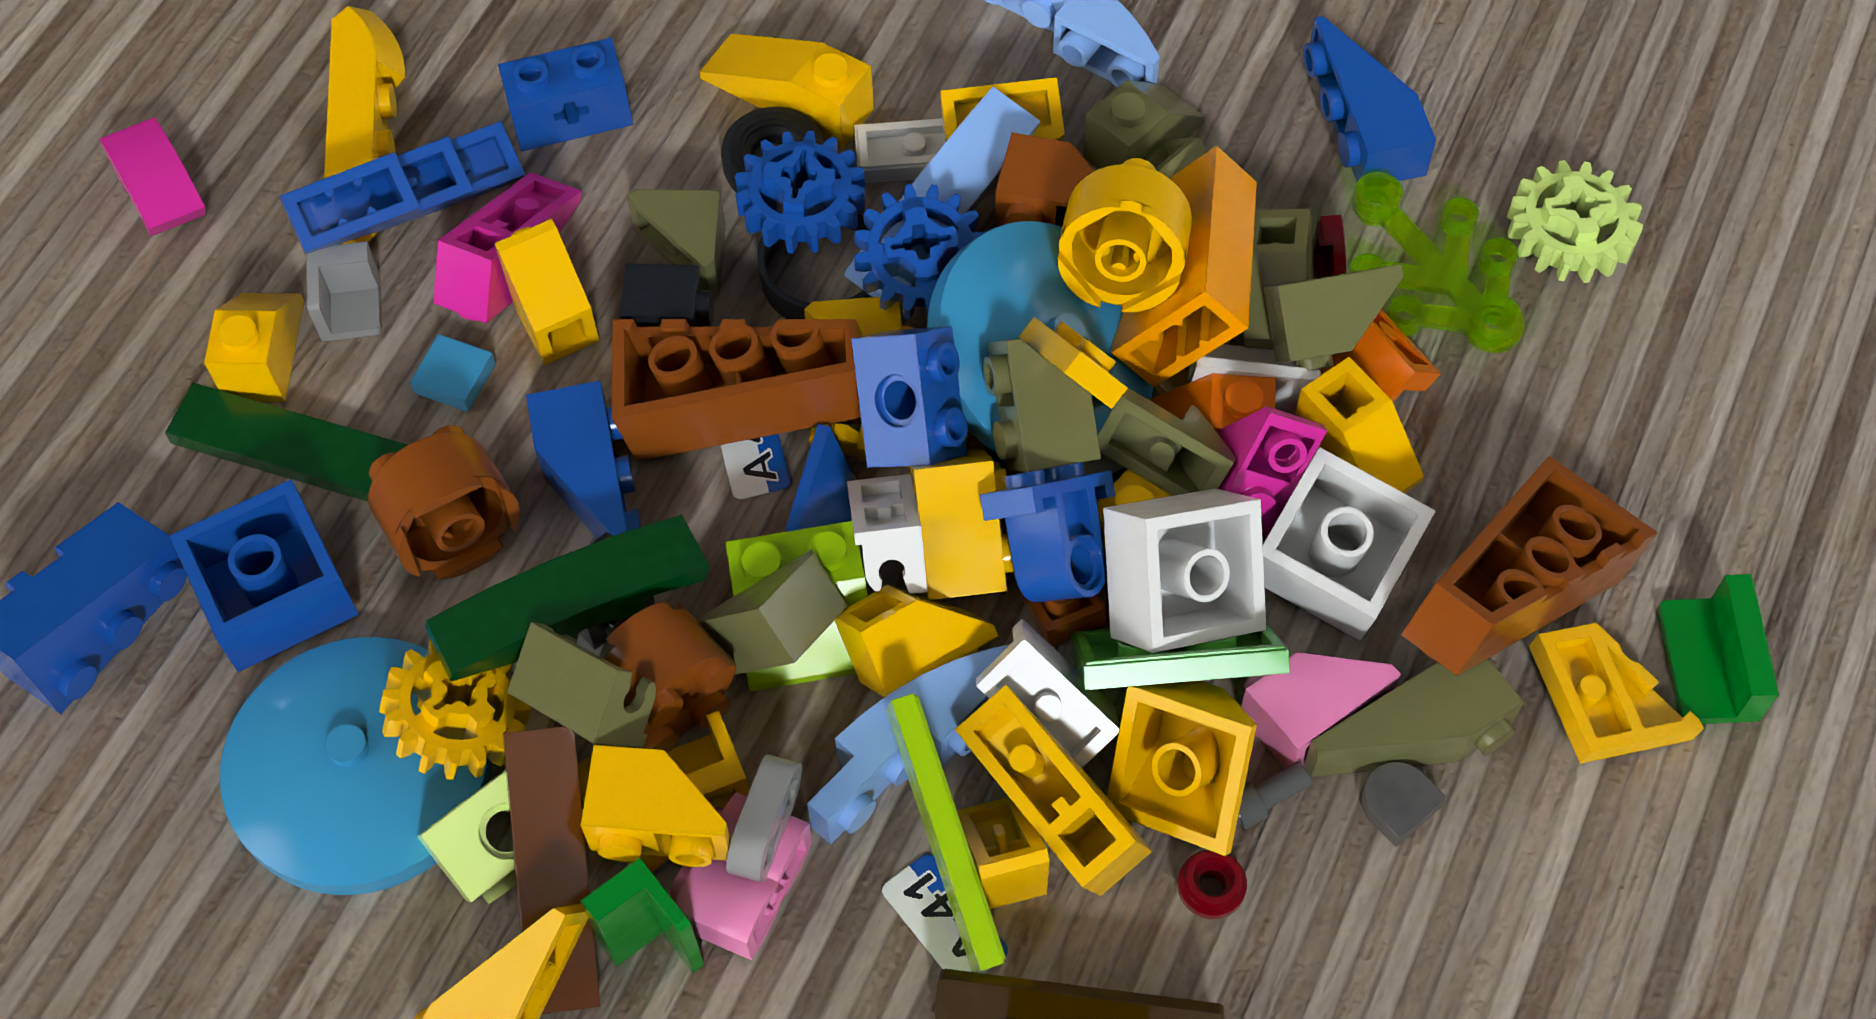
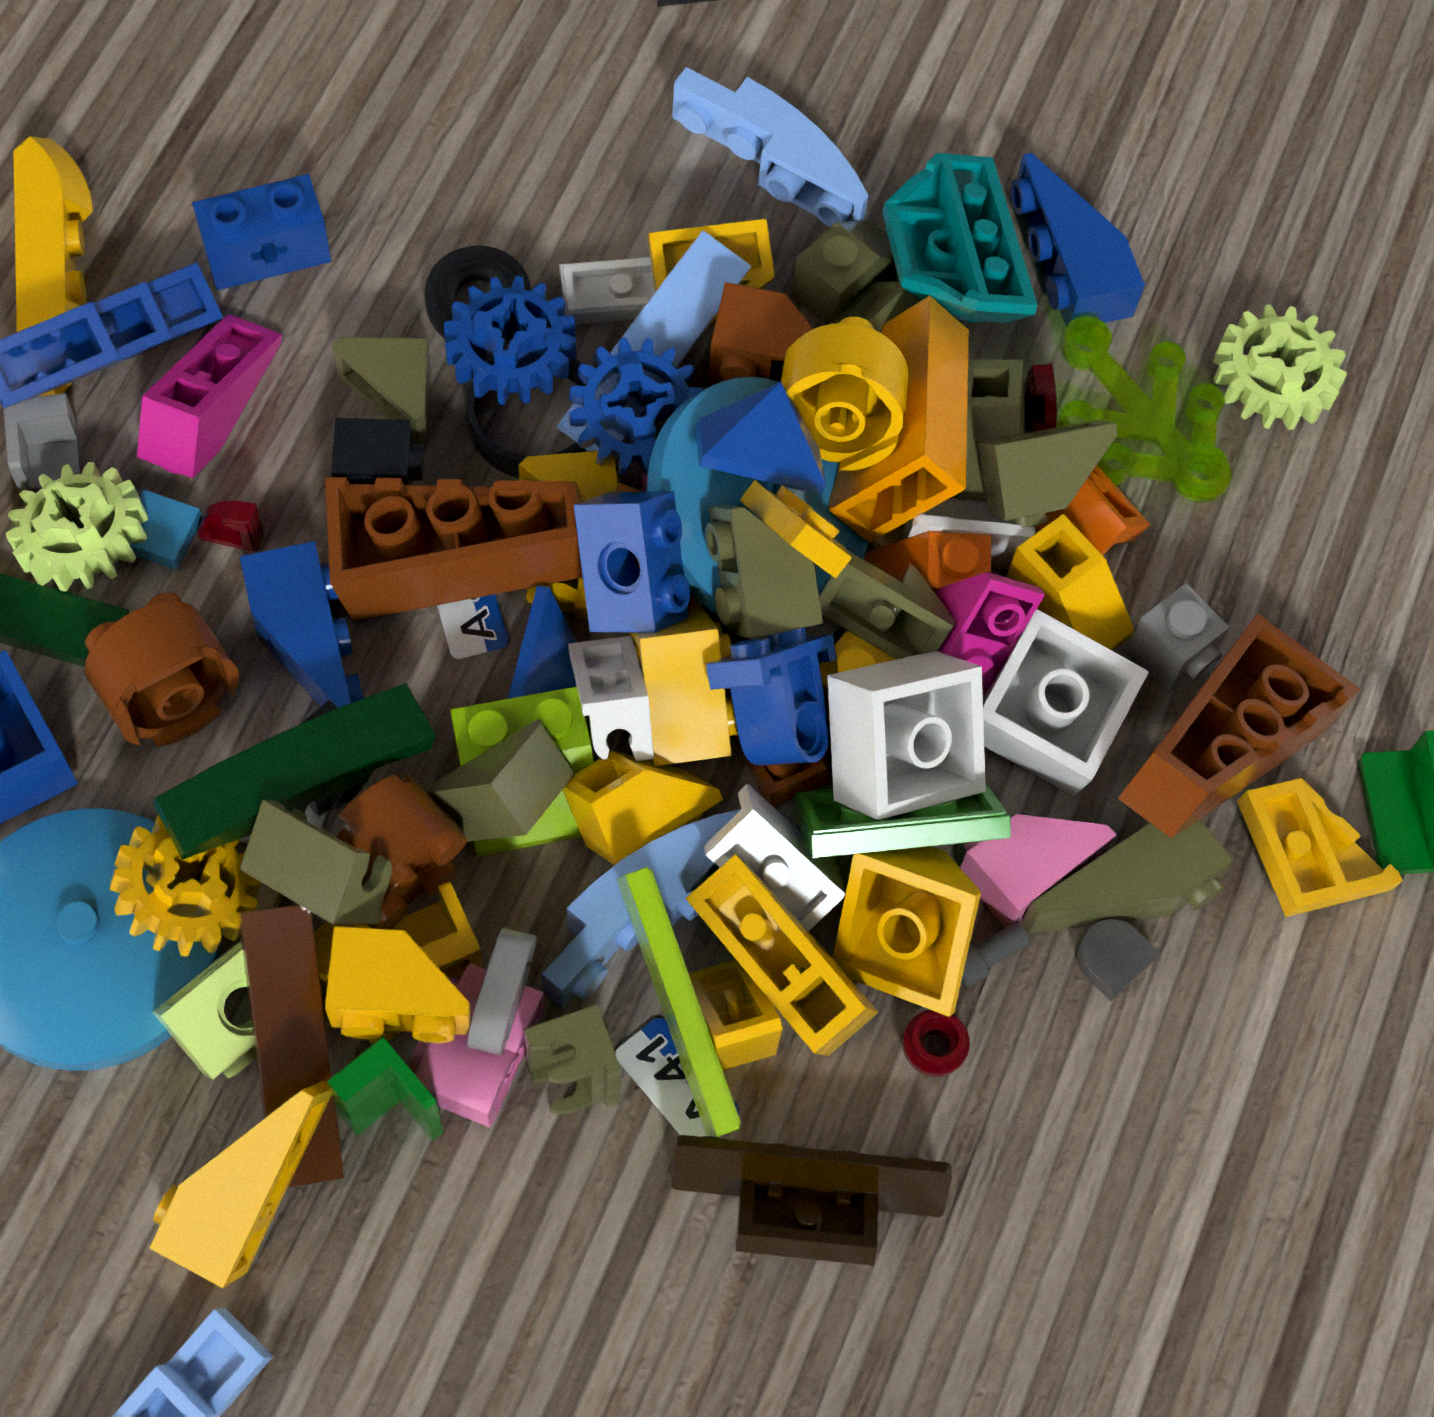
camera: 10 degrees left, 5 degrees up
(371, 367) = (53, 545): none -> yellowish green gear
(523, 368) = (232, 525): none -> dark red tile
(547, 291) = (255, 445): yellow slope -> none
(798, 76) = (496, 213): yellow slope -> none
(840, 879) = (575, 1050): none -> olive hinge
(1042, 278) = (762, 441): none -> blue slope
(1249, 99) = (959, 241): none -> teal wedge
(1467, 482) = (1178, 639): none -> light grey brick

